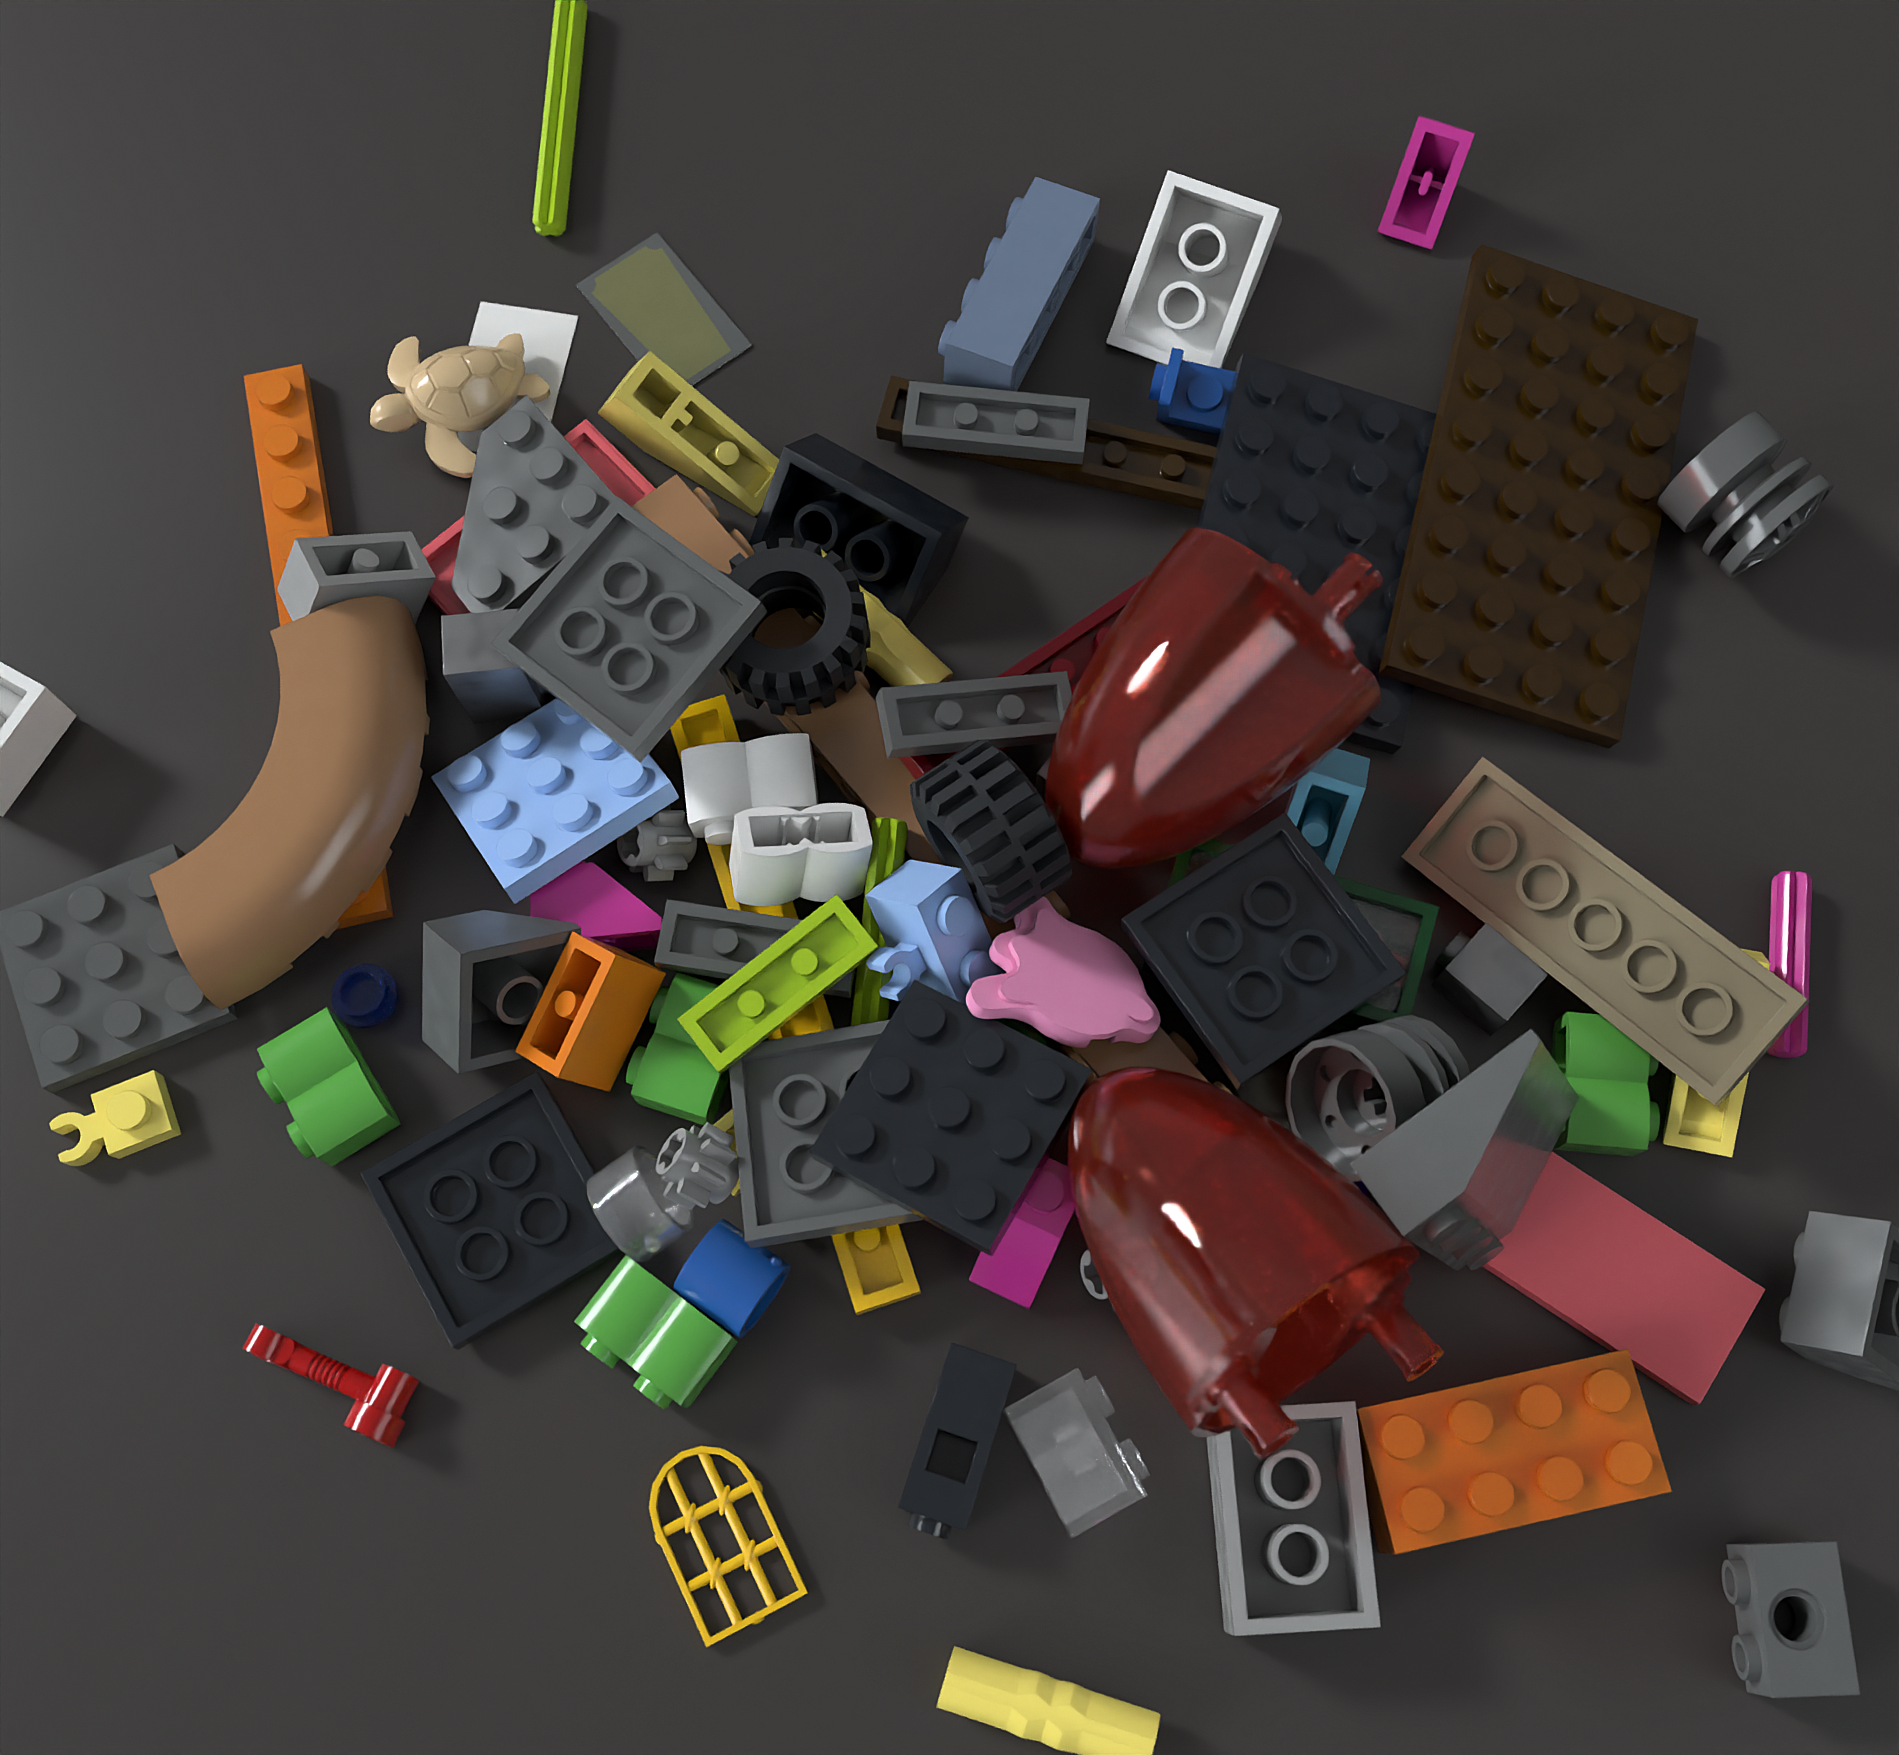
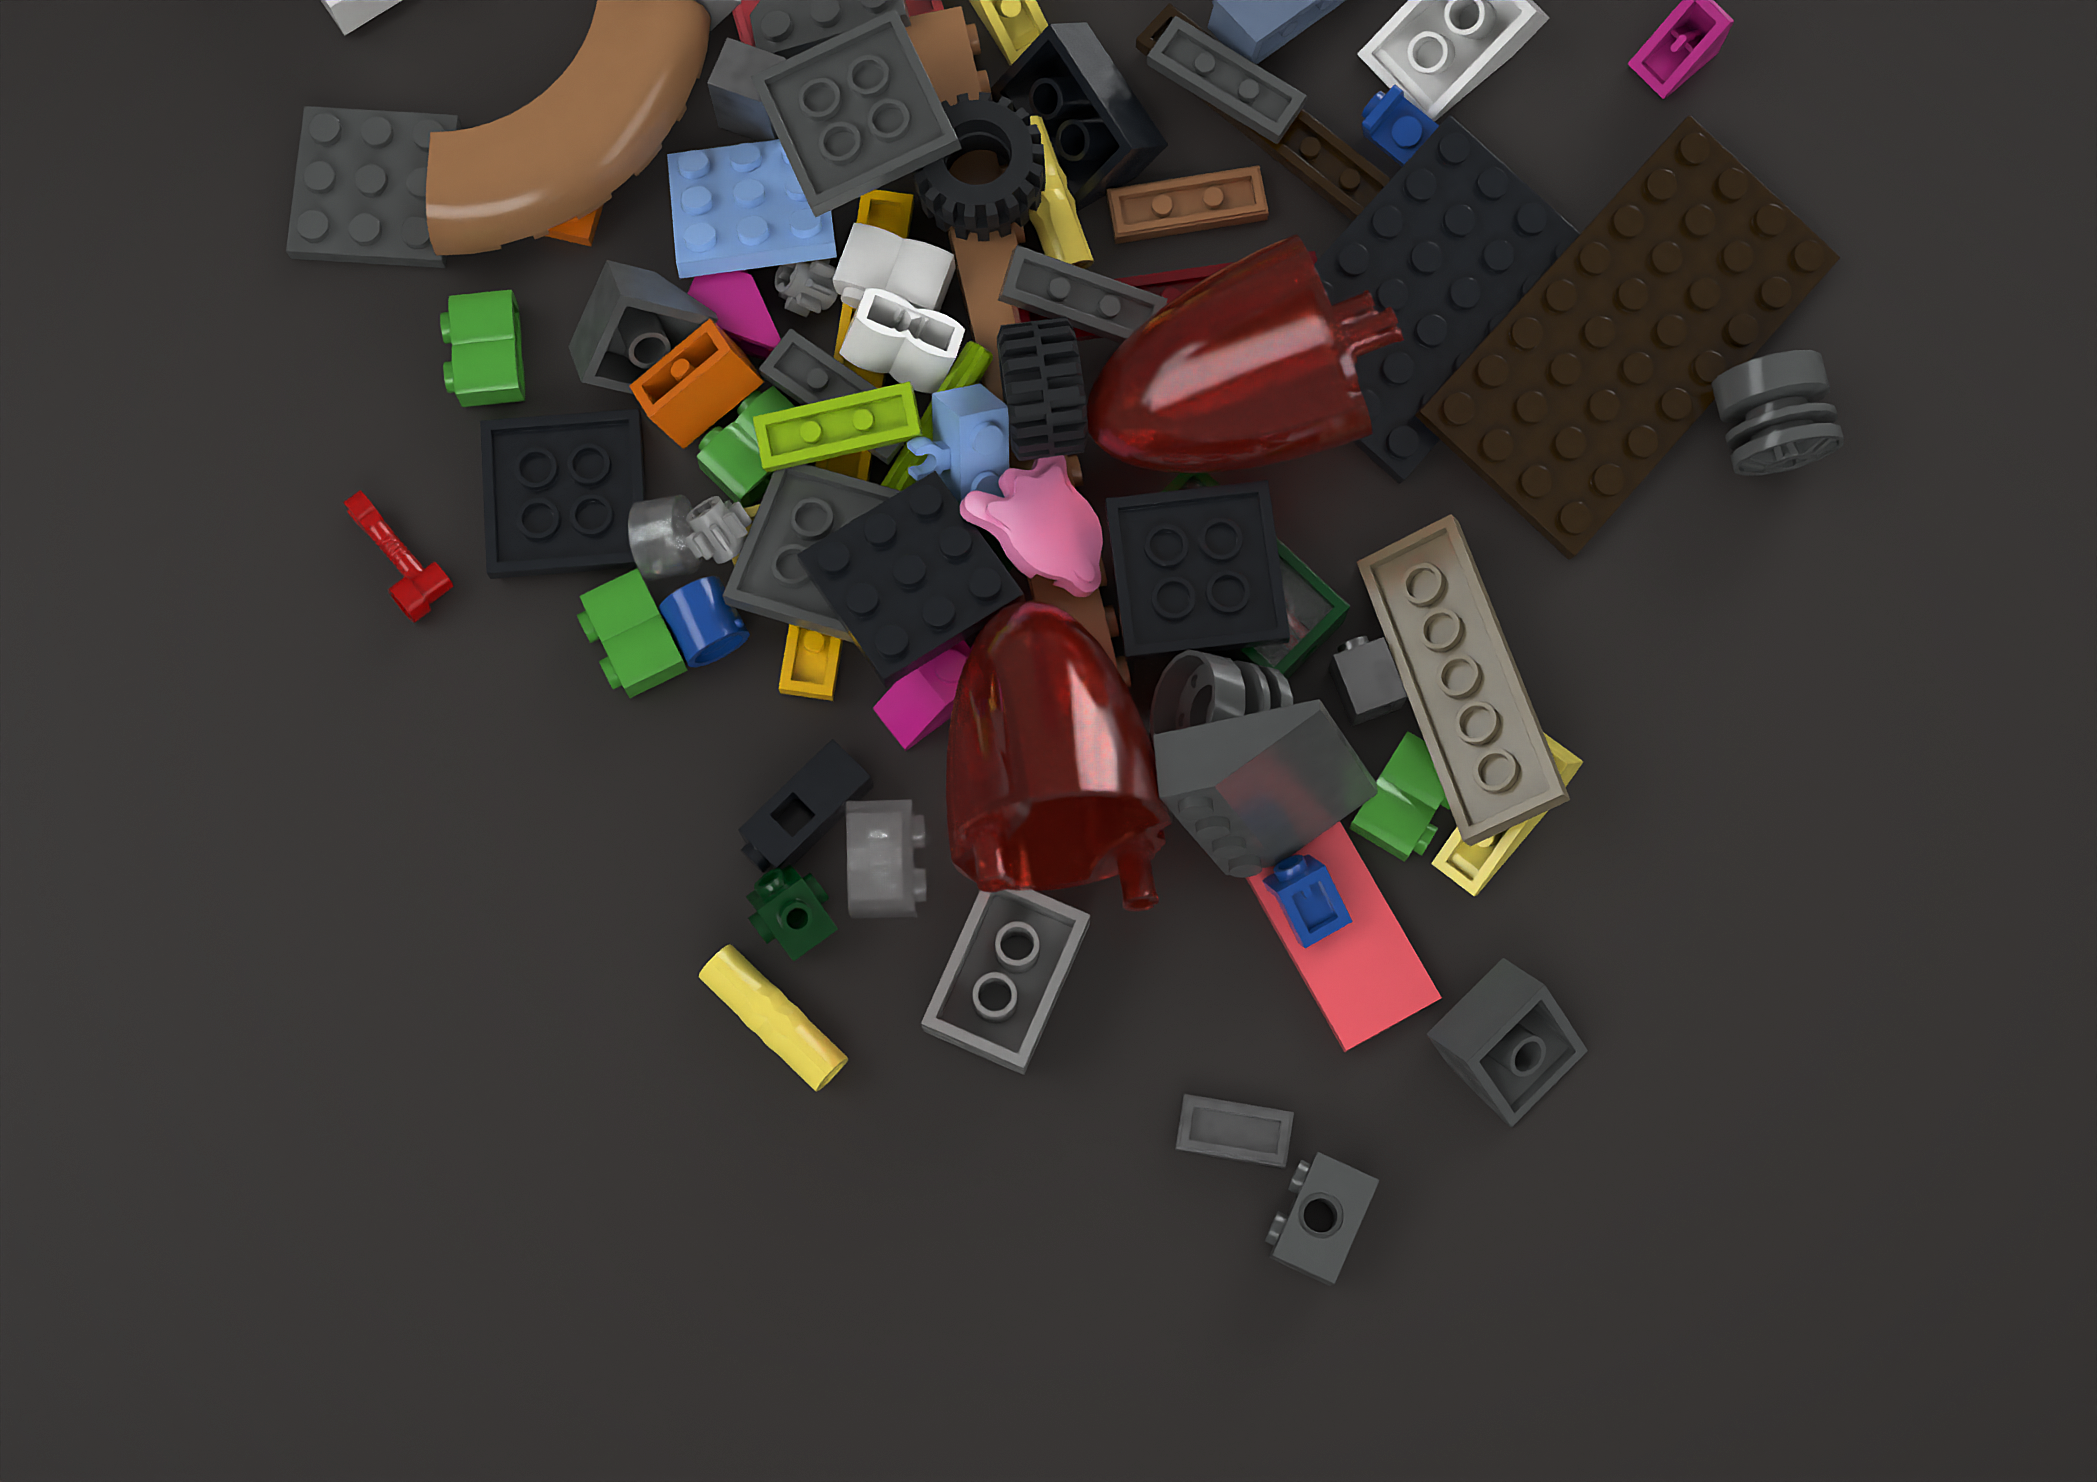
camera: 25 degrees right, 5 degrees up
(124, 1120) = (335, 303): light yellow plate -> none
(364, 995) = (543, 294): clear blue plate -> none
(715, 1568) = (595, 814): yellow window -> none
(1006, 1573) = (790, 911): none -> dark green brick
(1016, 571) = (1187, 204): none -> medium nougat tile
(1327, 803) = (1315, 496): medium azure slope -> none
(1508, 1453) = (1184, 1008): orange brick -> none
(1568, 1253) = (1307, 898): none -> blue bracket
(1630, 1563) = (1234, 1131): none -> flat silver tile
(1791, 951) = (1604, 782): dark pink axle -> none

